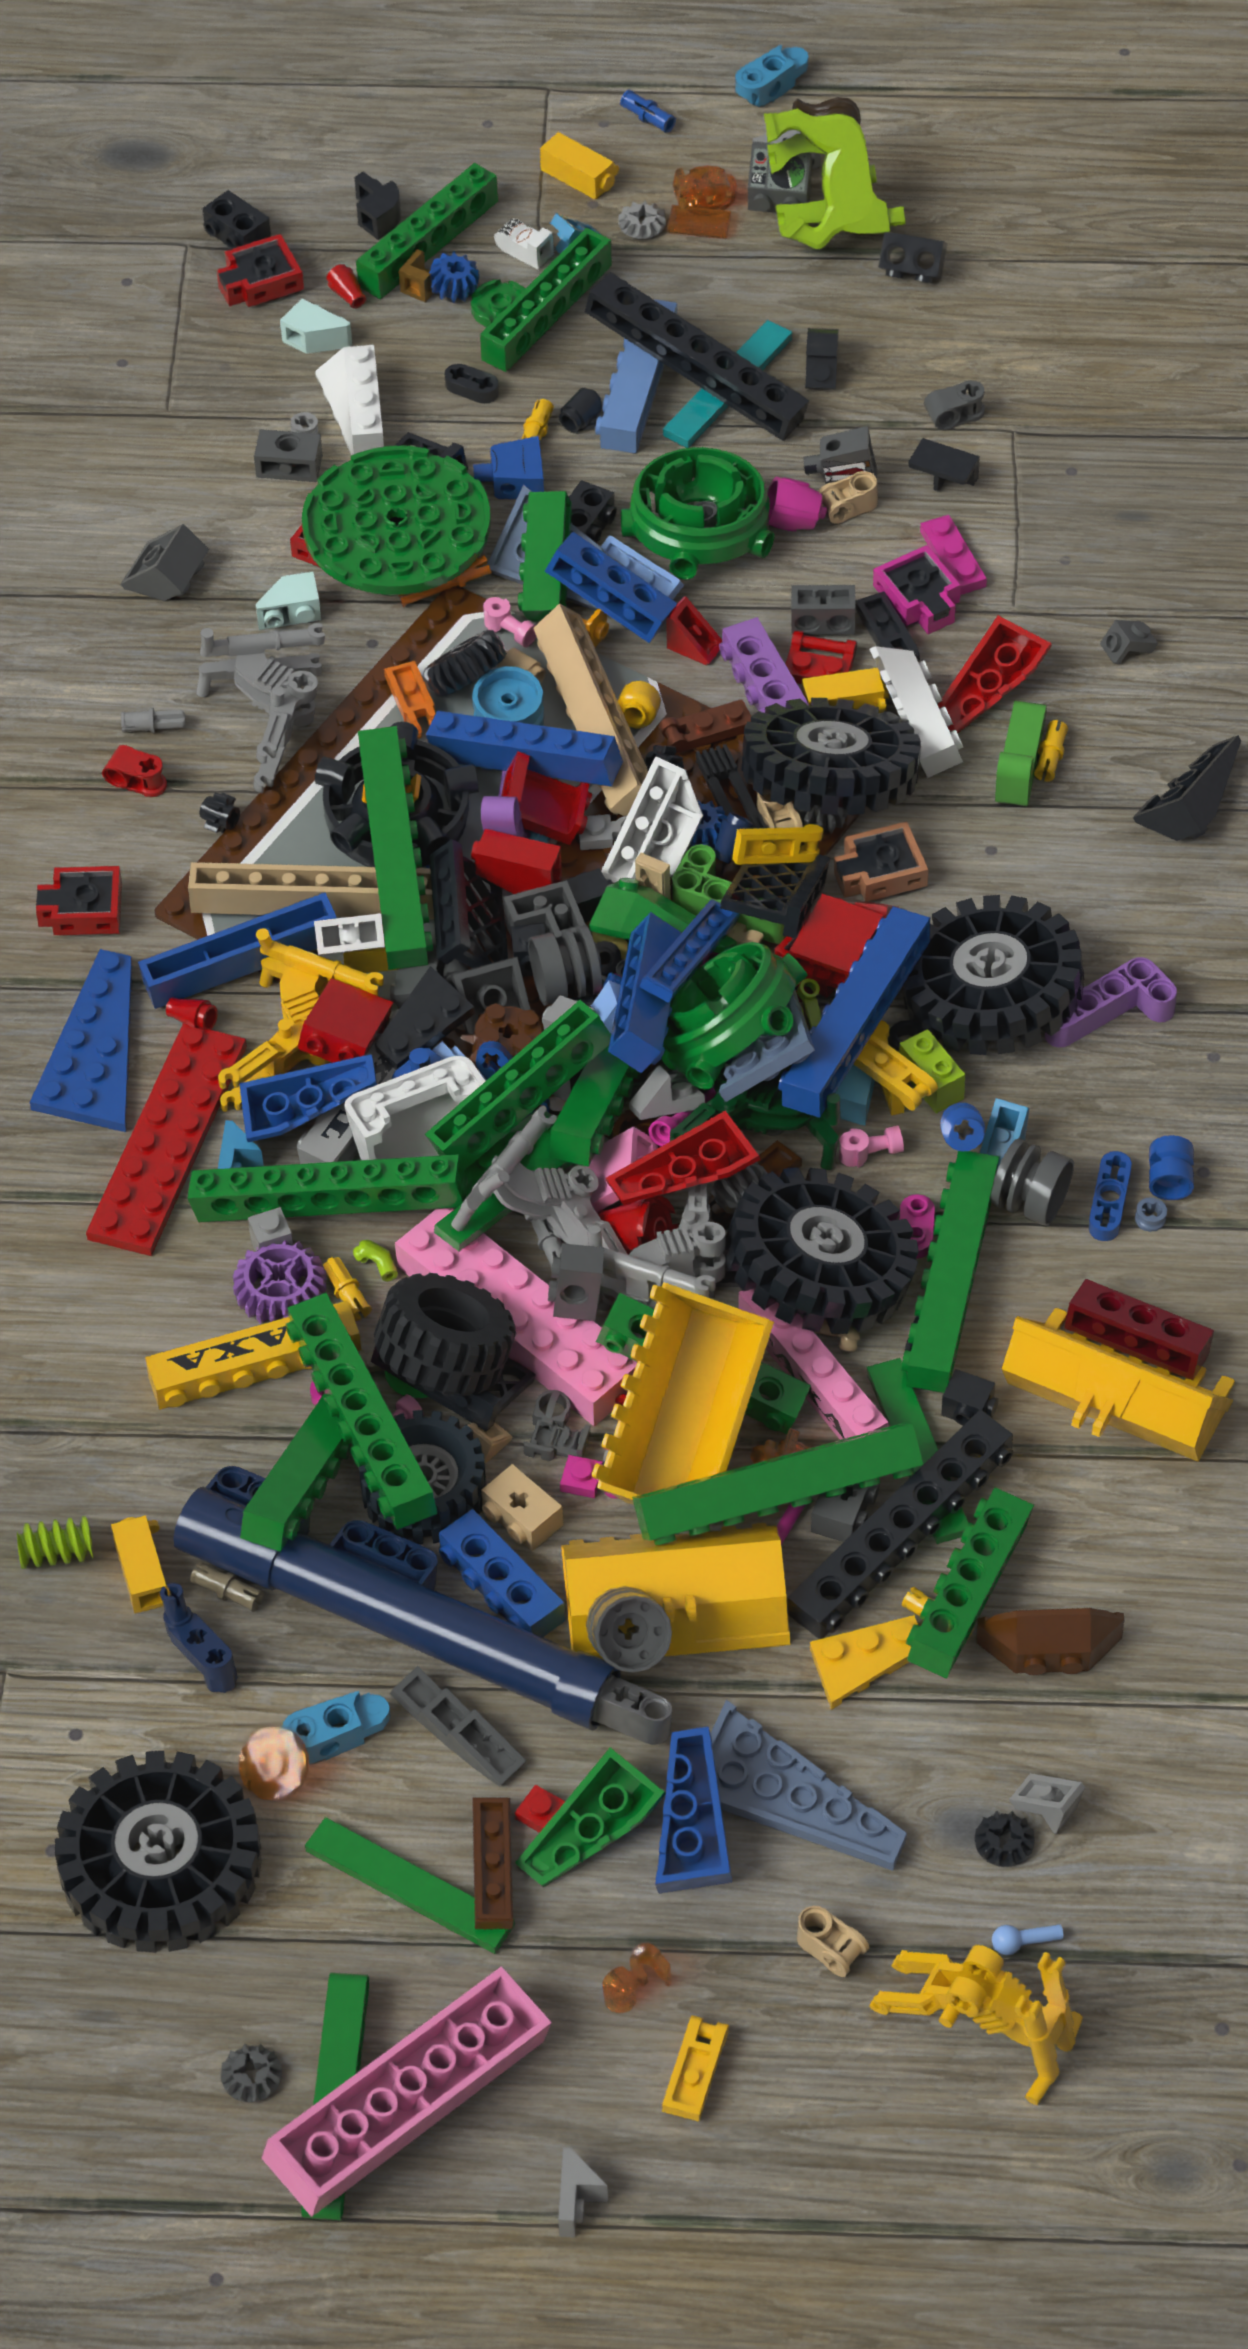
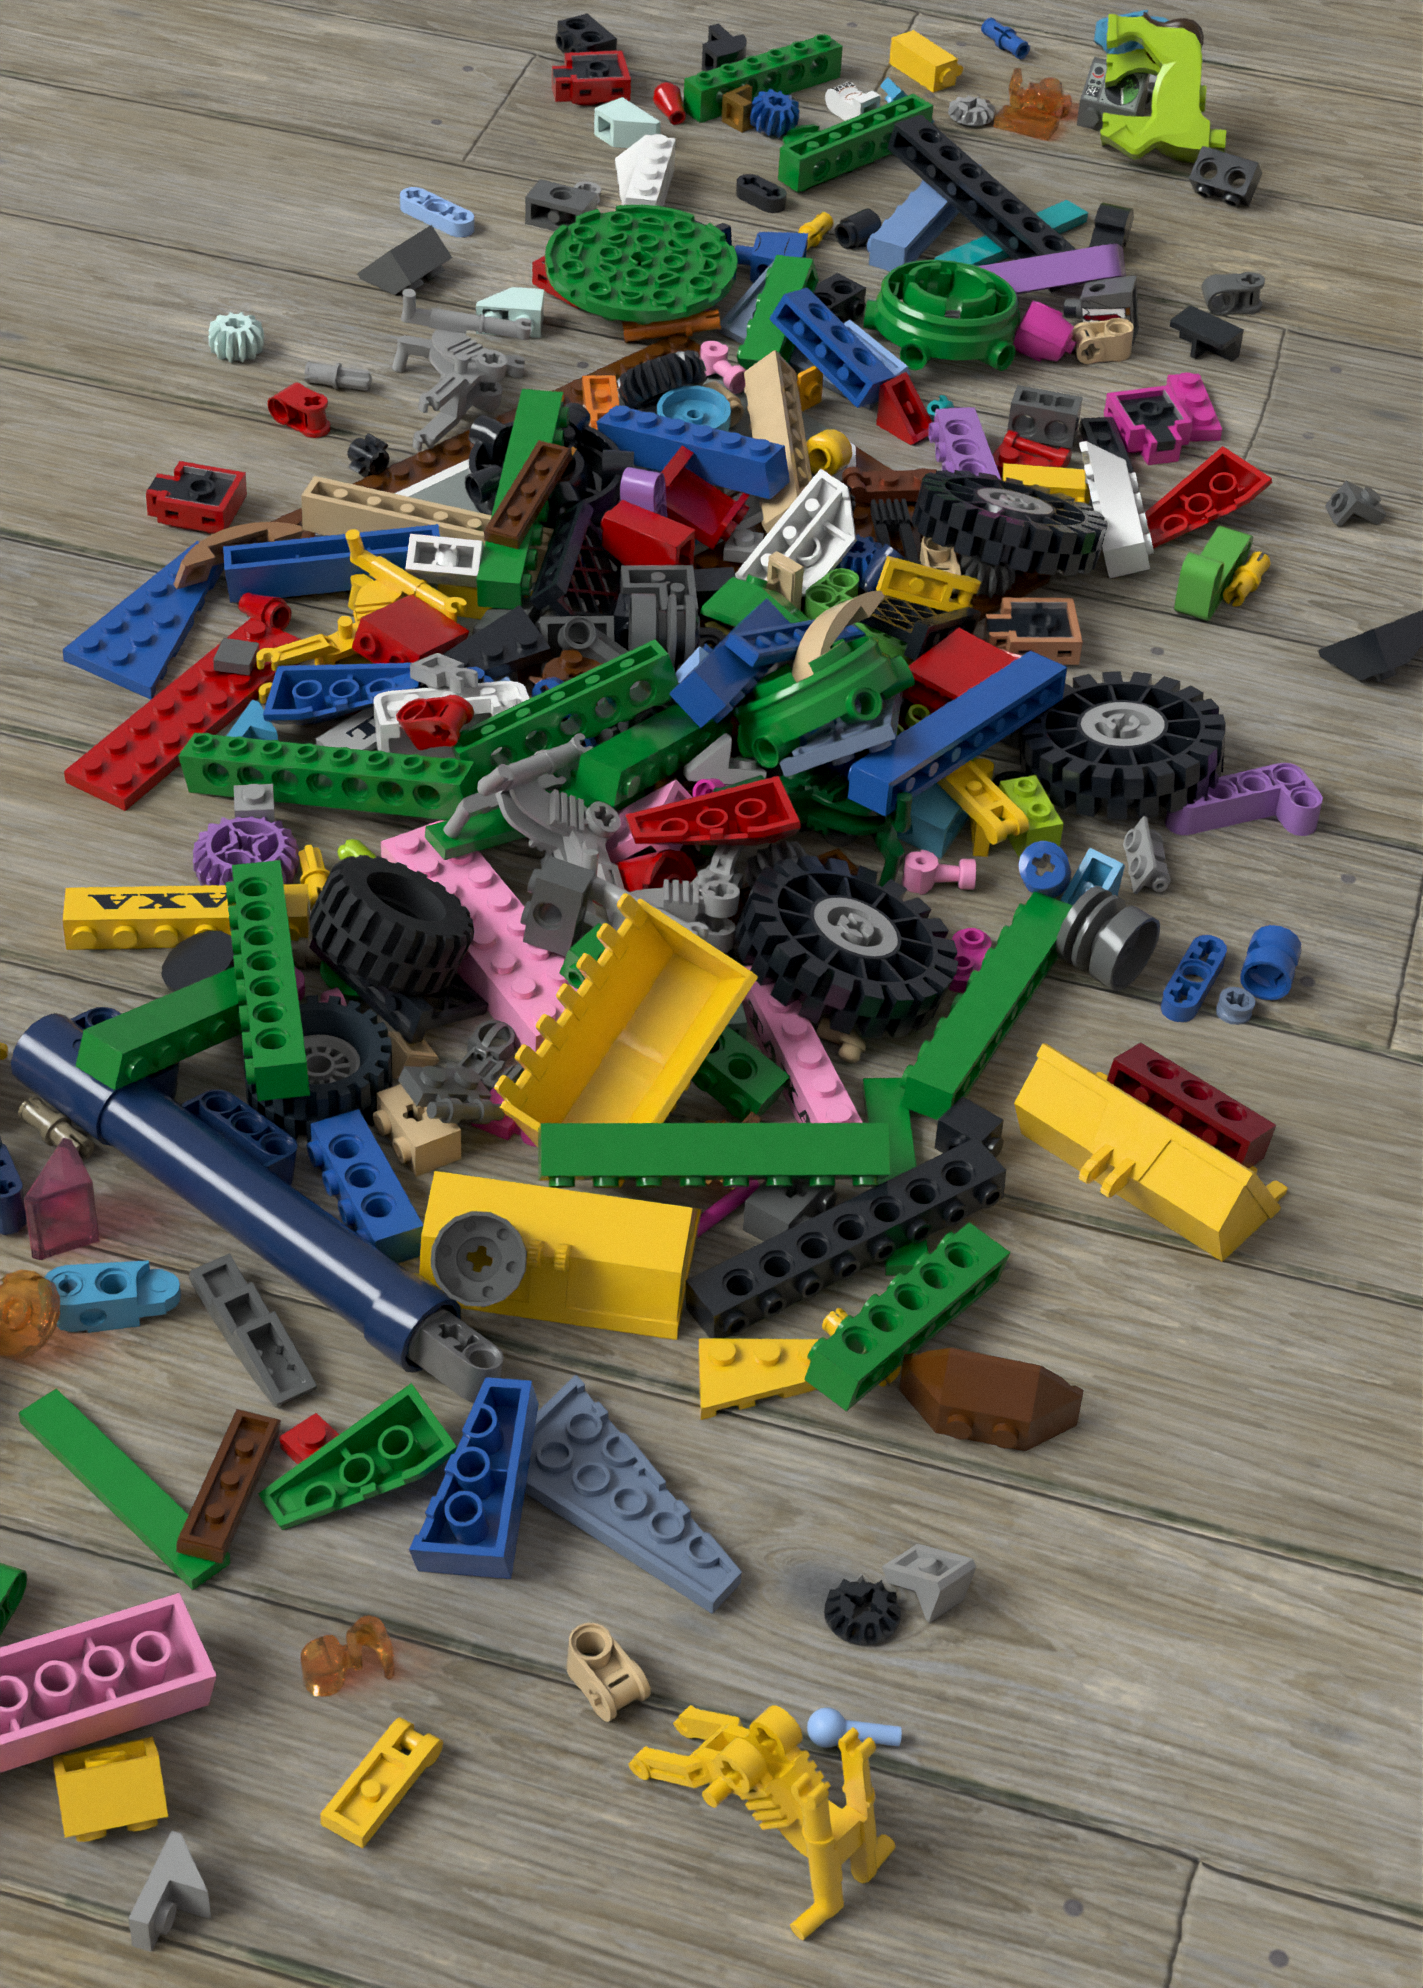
camera: 10 degrees right, 10 degrees down
(40, 698) = (236, 337): none -> light aqua gear
(149, 479) = (437, 212): none -> light blue beam
(165, 935) = (209, 552): none -> medium nougat slope
(191, 1074) = (236, 656): none -> dark grey tile
(272, 1657) = (61, 1205): none -> clear pink slope
(284, 1399) = (197, 959): none -> black tile
(393, 1062) = (443, 671): none -> light grey plate
(403, 850) = (528, 494): none -> reddish brown tile
(411, 1122) = (435, 720): none -> red piece
(500, 2125) = (110, 1789): none -> yellow slope
(509, 992) = (596, 644): none -> dark grey piece
(544, 1475) = (450, 1094): none -> dark grey plate
(716, 944) = (827, 628): none -> tan slope
(725, 618) = (942, 403): none -> teal arm
(789, 429) = (1061, 268): none -> medium lavender beam
(1035, 1074) = (1146, 858): none -> light grey hinge

